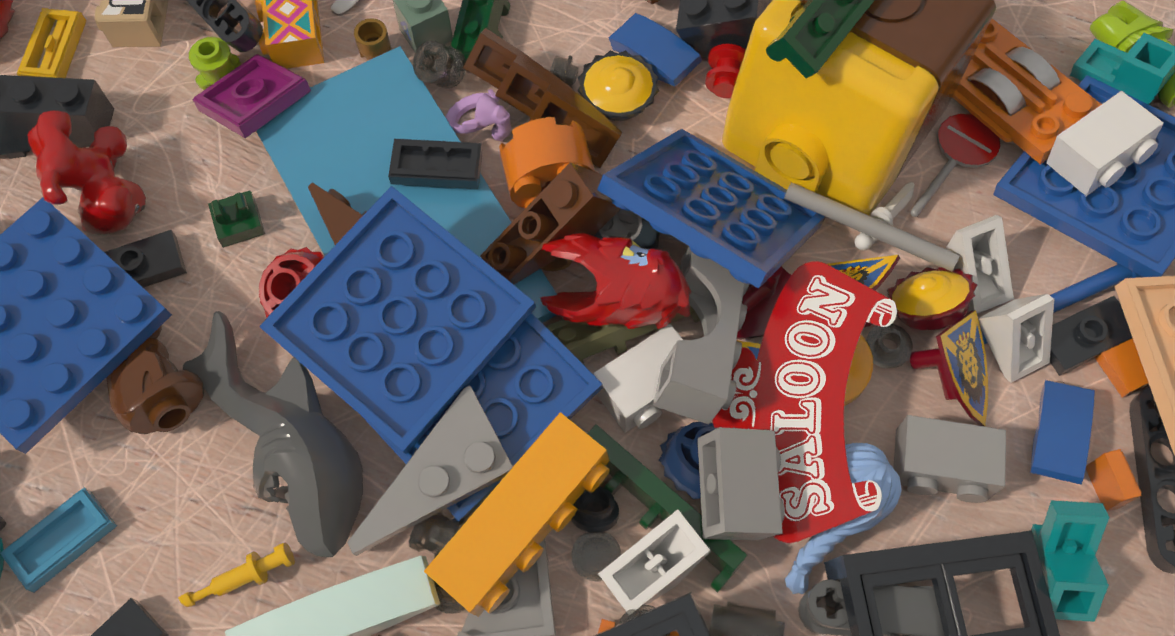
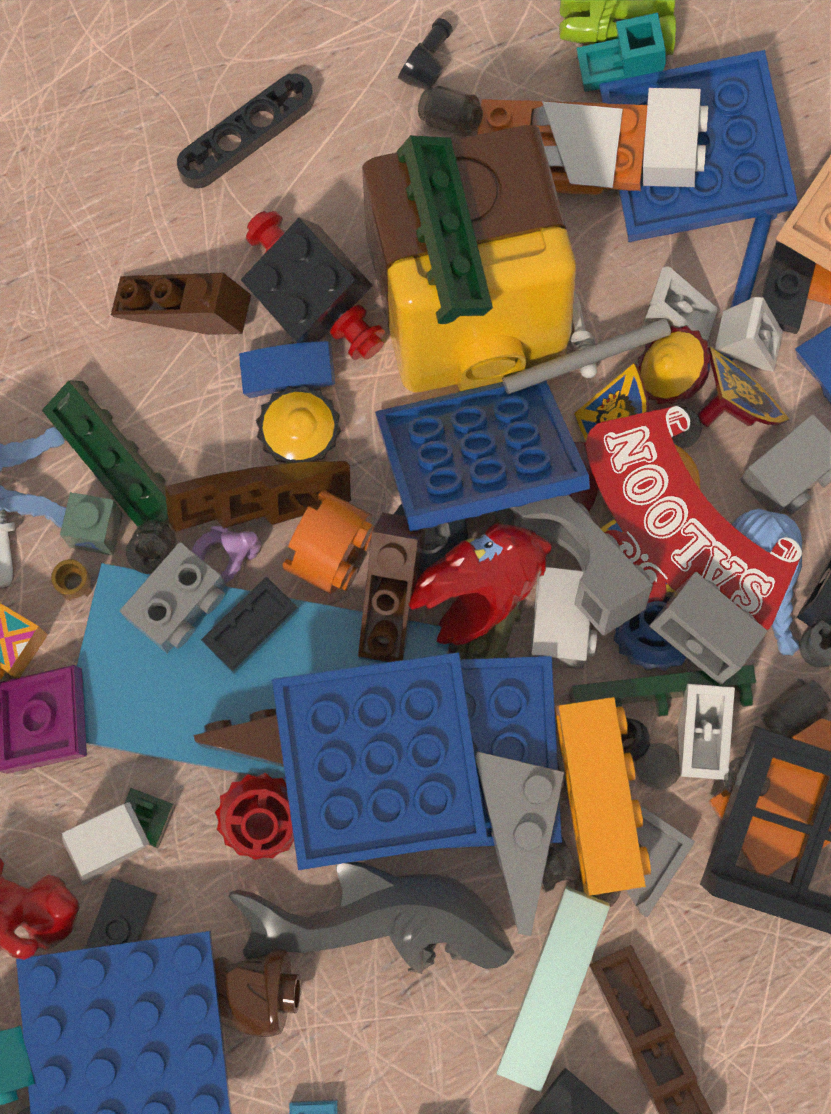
camera: 50 degrees left, 10 degrees up
(182, 193) = (104, 842): none -> white slope
(253, 570) = (461, 1031): yellow piece -> none
(409, 99) = (174, 598): none -> light grey brick
(565, 70) = (243, 455): clear smoke plate -> none
(964, 143) = (581, 219): red piece -> none
(1032, 91) = (586, 141): none -> white sticker

